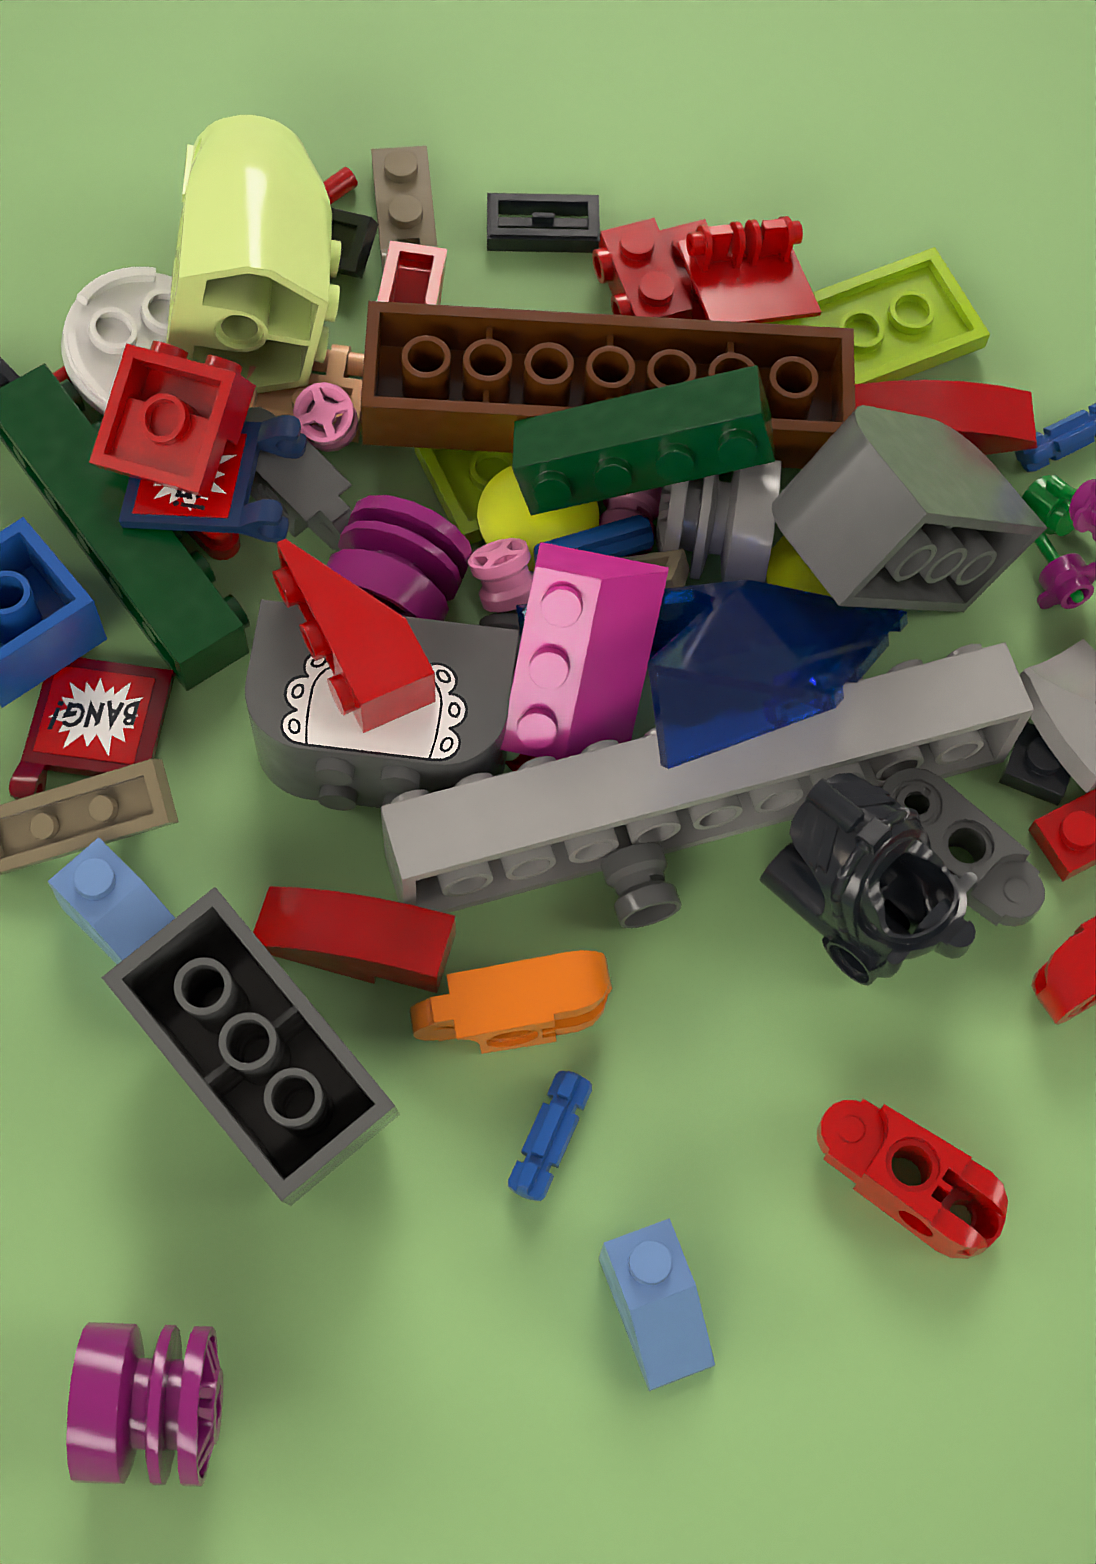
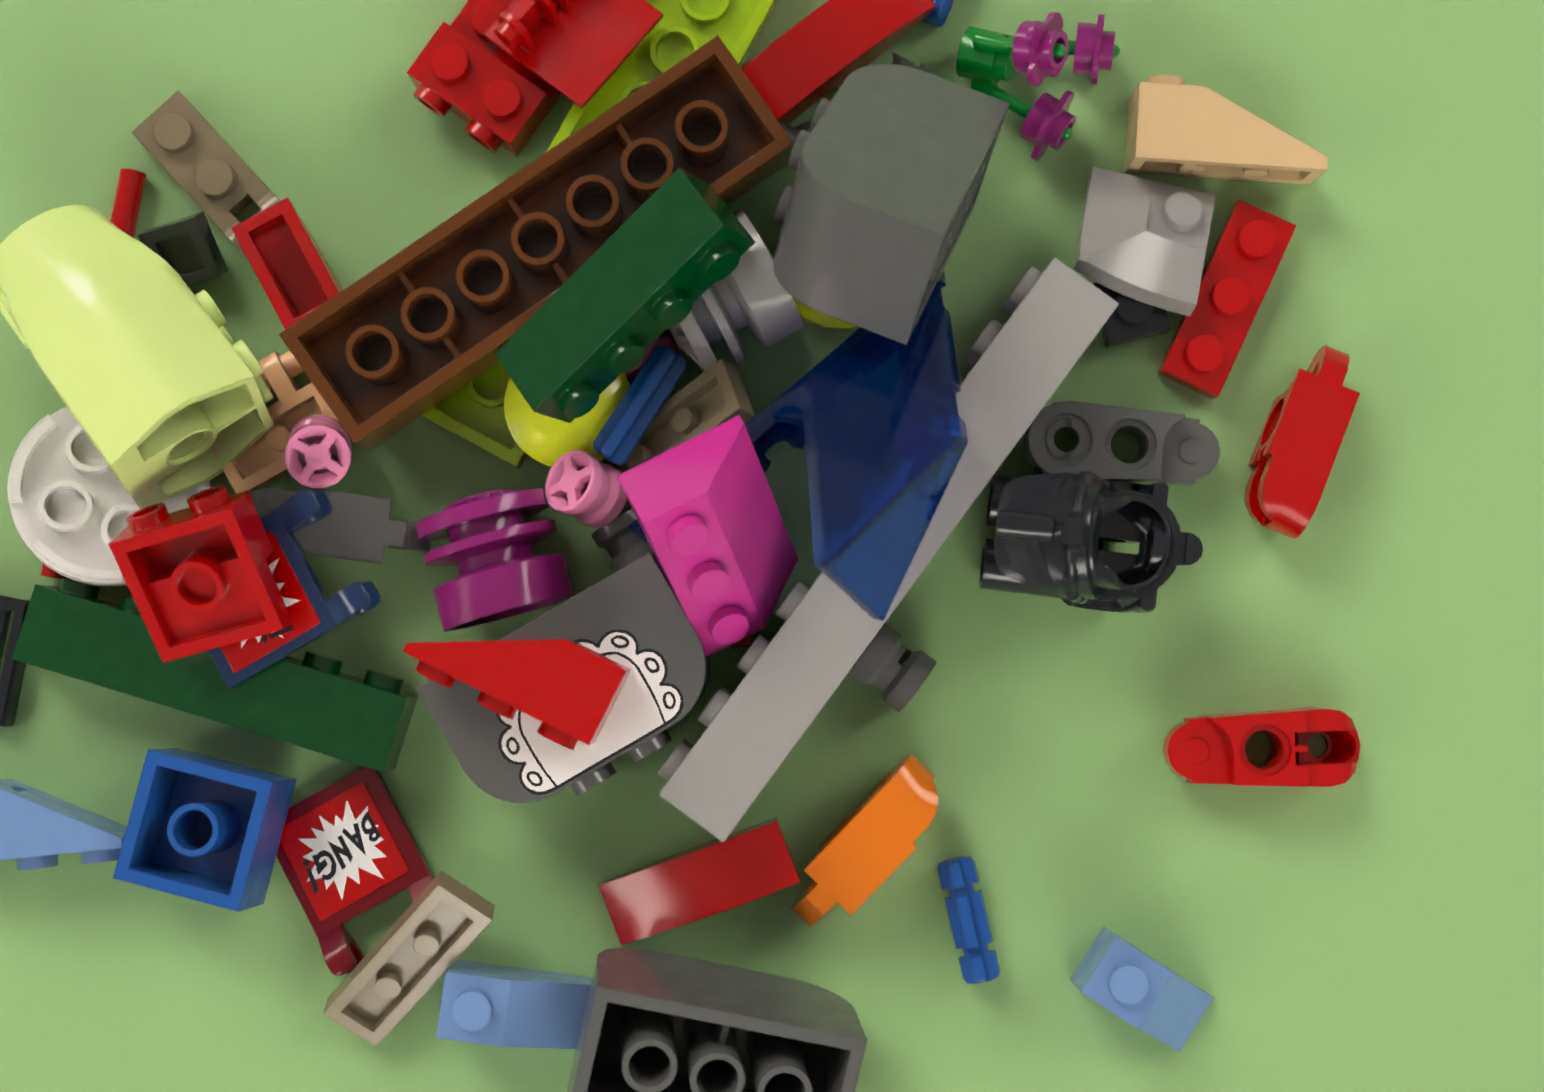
camera: 30 degrees left, 20 degrees up
(543, 230) = (356, 106): black tile -> none

